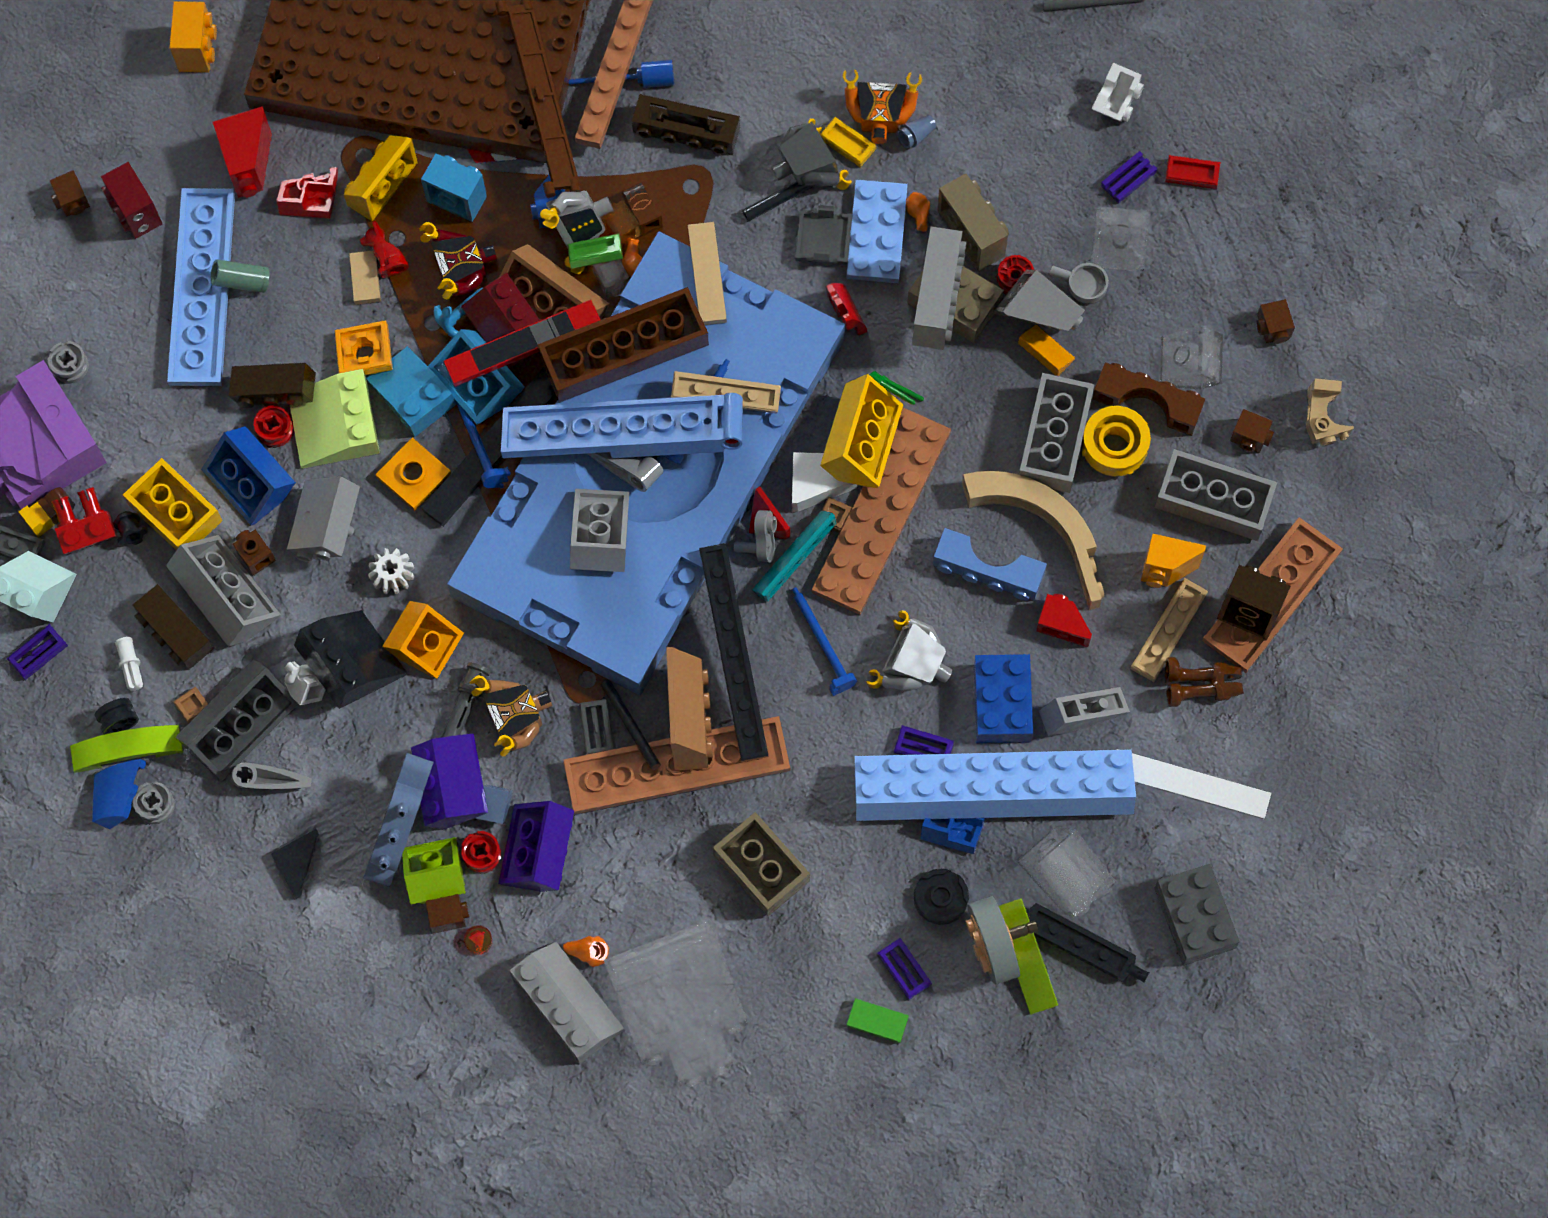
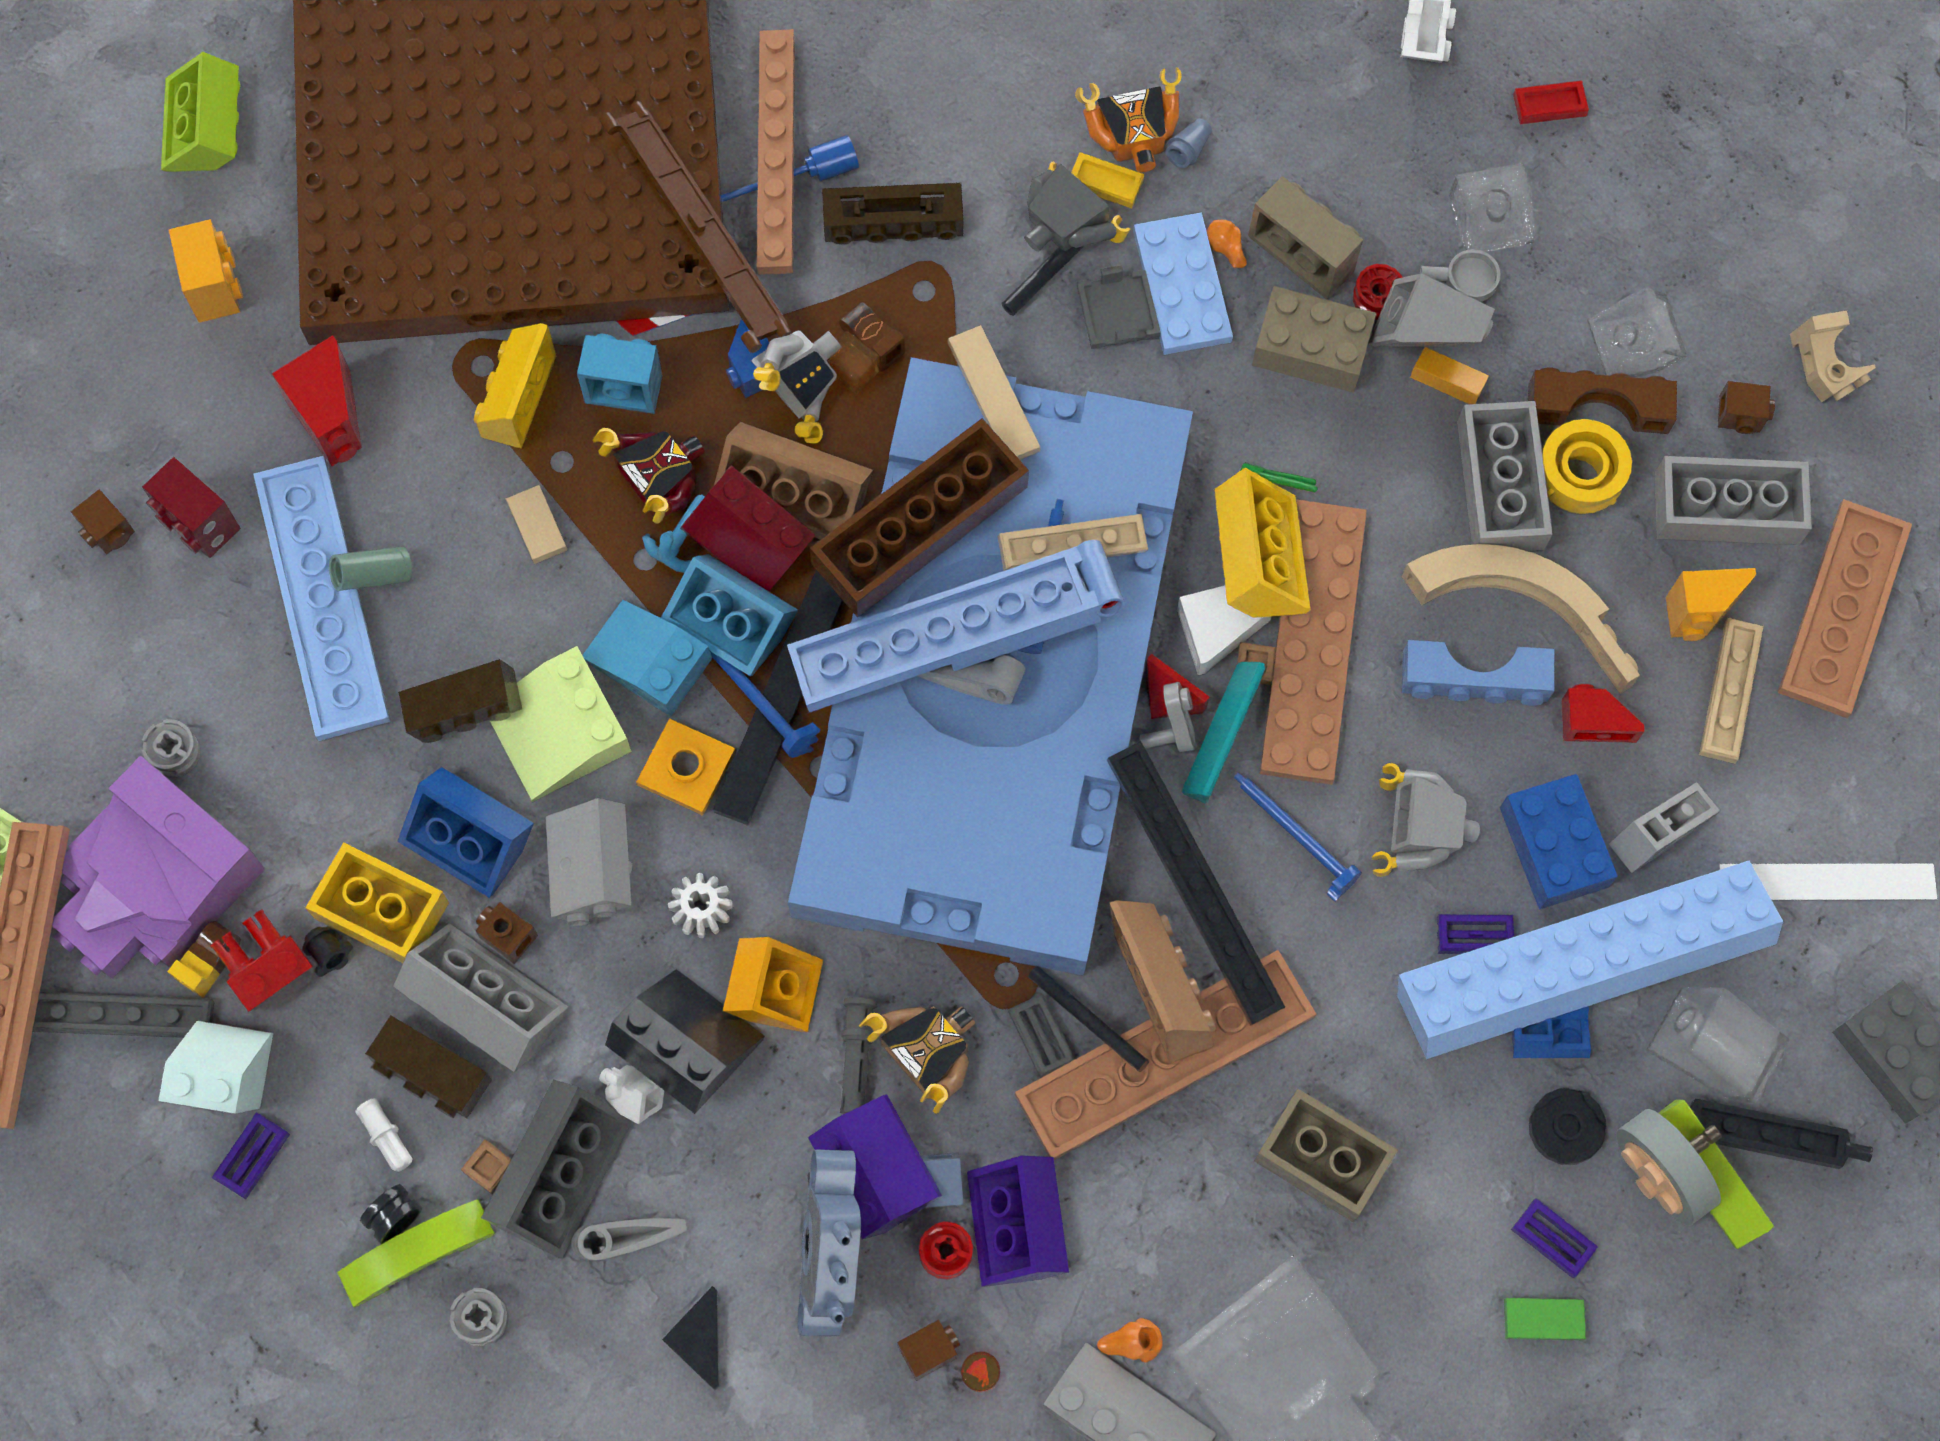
camera: 20 degrees left, 0 degrees up
(115, 792) = (422, 1320): blue slope -> none
(279, 434) = (489, 765): red wheel -> none
(308, 195) = (426, 437): red slope -> none
(352, 339) = (568, 598): light orange piece -> none
(390, 257) = (562, 488): red animal -> none
(433, 870) = (894, 1296): lime slope -> none
(518, 343) = (779, 554): tile -> none
(595, 251) = (833, 406): bright green tile -> none
(599, 530) = (970, 772): light grey slope -> none
(611, 277) = (862, 432): clear brick -> none
(632, 257) = (882, 407): orange animal -> none
(845, 307) = (1174, 389): red slope -> none
(939, 288) = (1301, 331): light grey brick -> none
(1144, 163) = (1487, 109): dark purple tile -> none
(1216, 675) = (1813, 731): reddish brown piece -> none
(1253, 601) = (1843, 623): dark brown brick -> none
(1275, 322) = (1723, 261): reddish brown brick -> none

